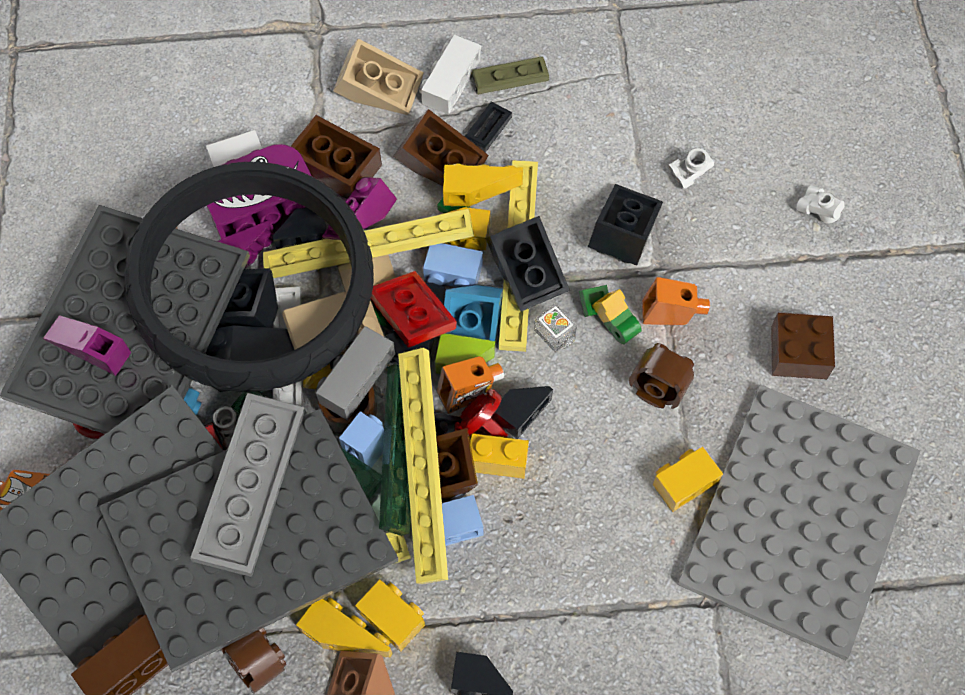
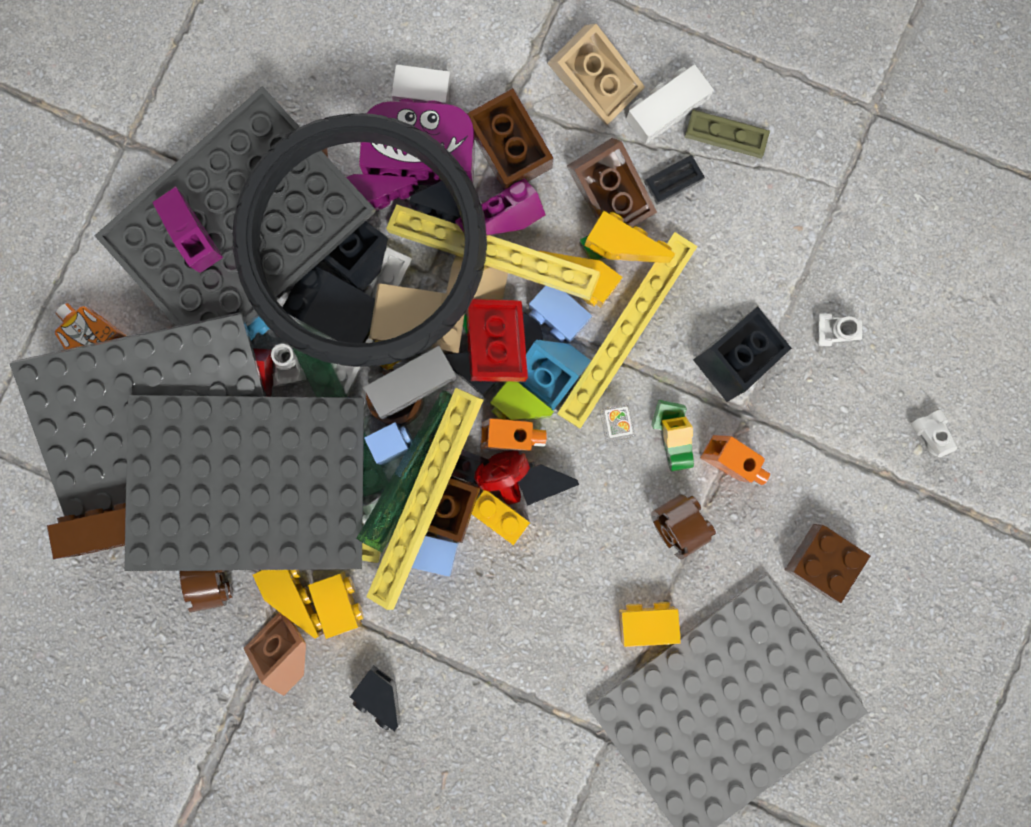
camera: 25 degrees right, 20 degrees up
(248, 485) = (262, 444): light grey plate -> none
(528, 263) = (626, 350): black slope -> none

